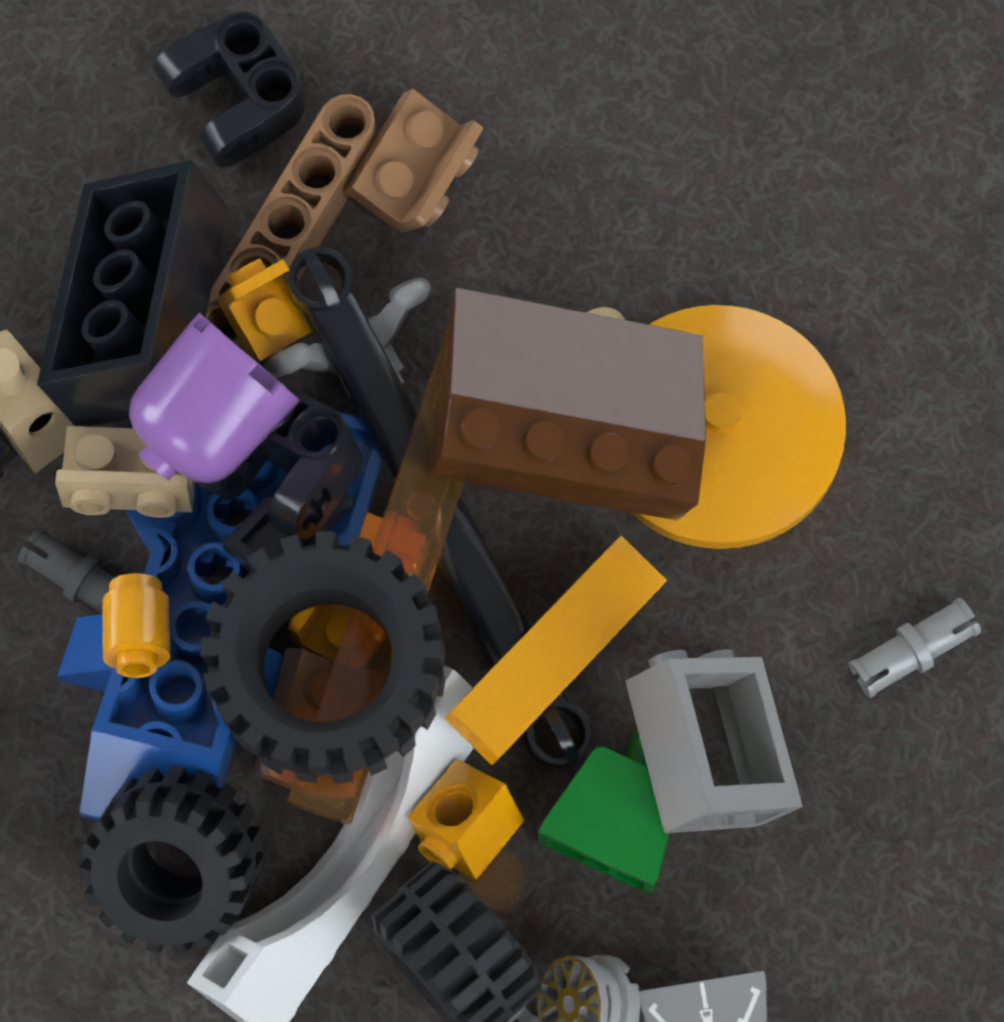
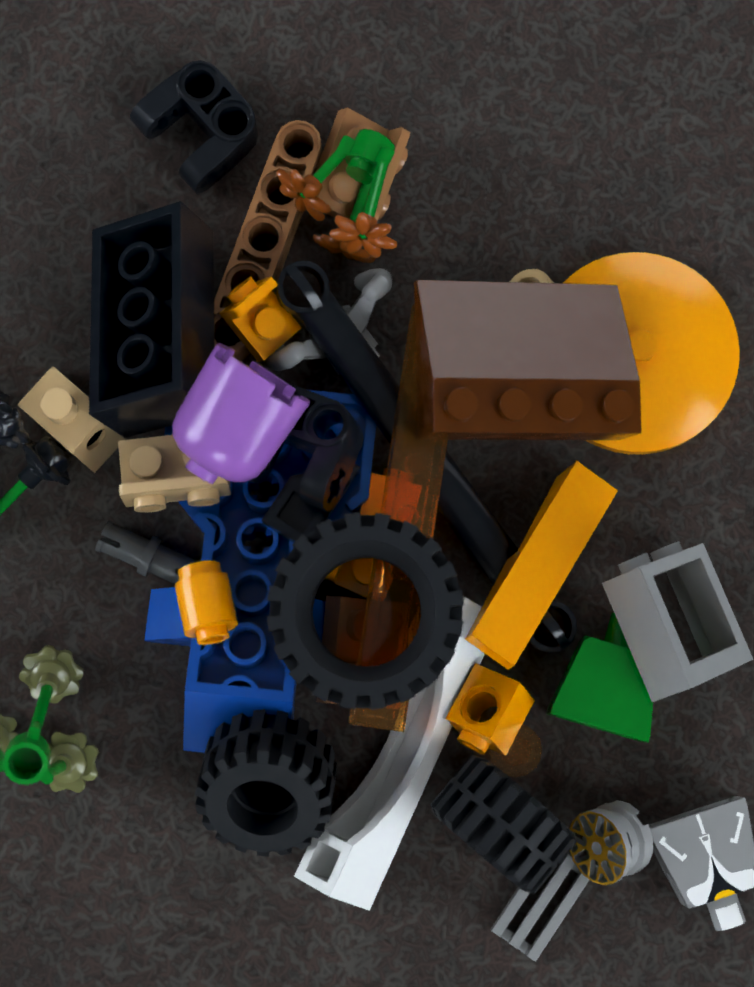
camera: 10 degrees left, 10 degrees up
(422, 153) = (367, 163): none -> plant

